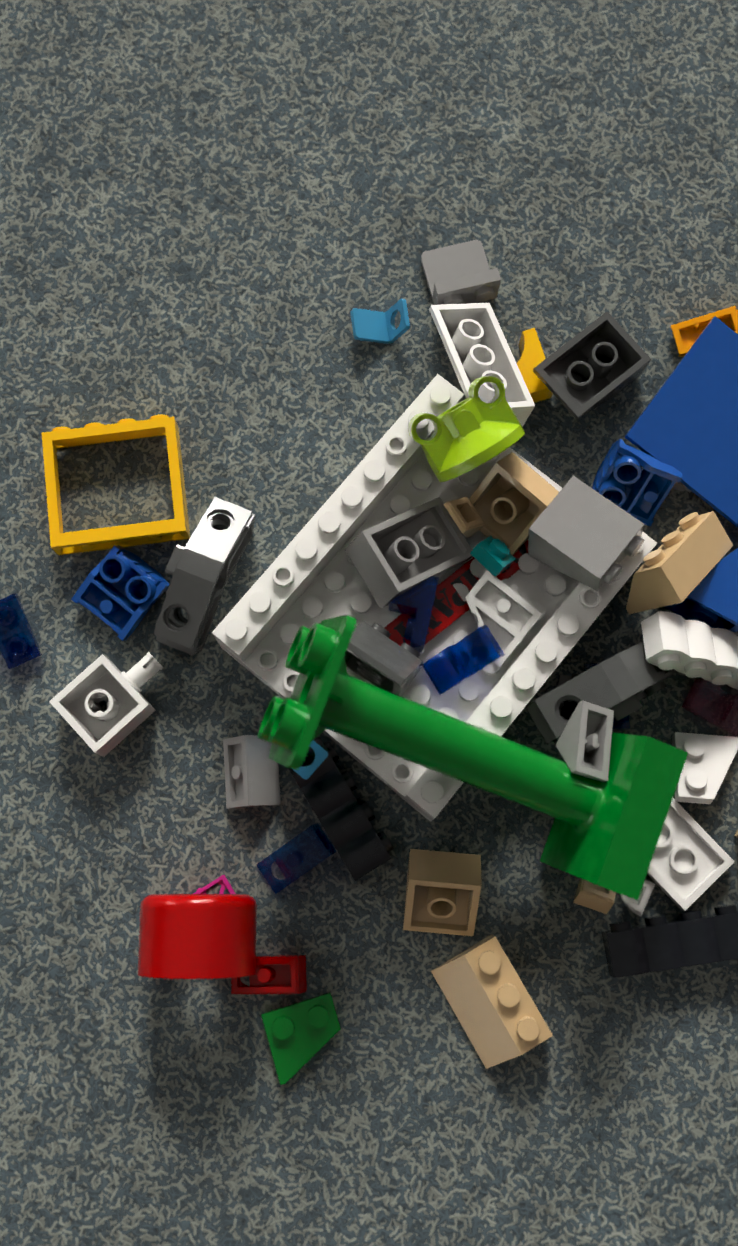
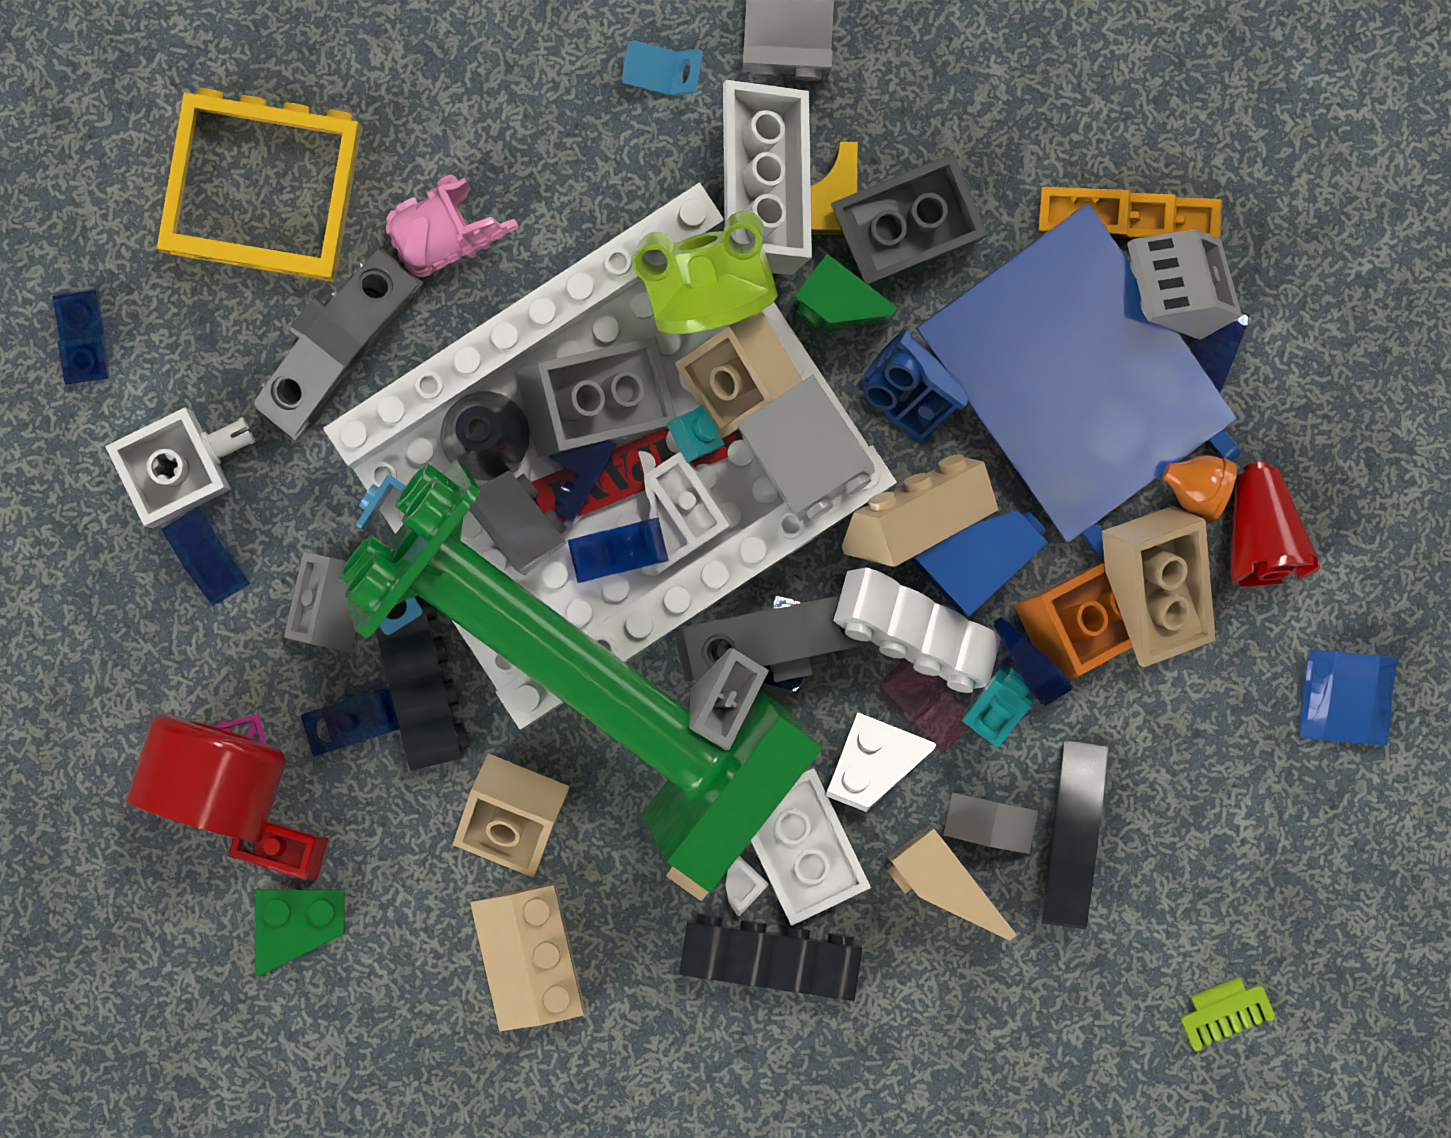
camera: 15 degrees right, 10 degrees up
(116, 588) = (221, 323): blue slope -> none
(149, 763) = (205, 555): none -> clear blue slope
(257, 476) = (434, 231): none -> bright pink helmet
(267, 674) = (374, 499): none -> dark azure bracket
(333, 596) = (502, 444): none -> black cone
(464, 516) = (674, 374): tan slope -> none
(563, 436) = (840, 300): none -> green slope

